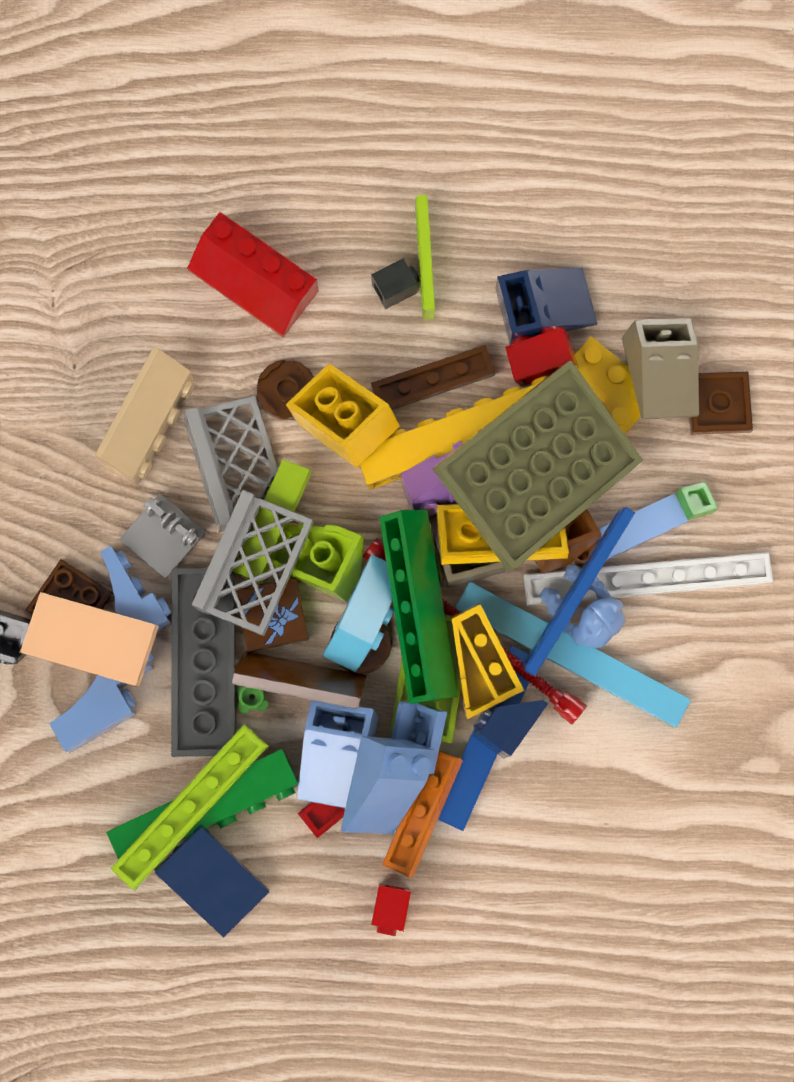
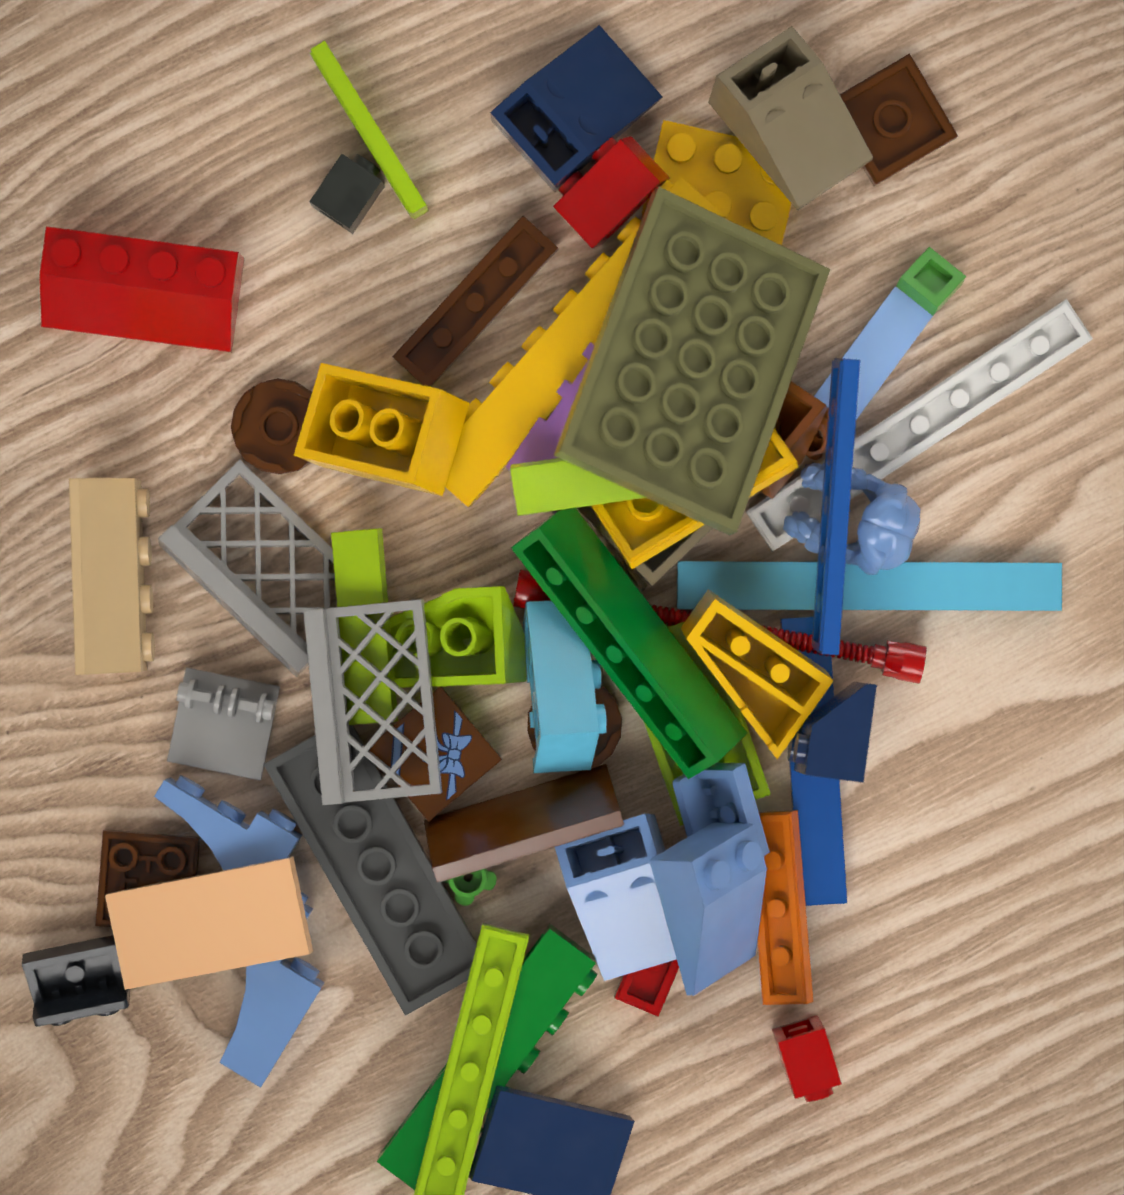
camera: 30 degrees left, 10 degrees up
(429, 496) = (560, 486): none -> lime tile

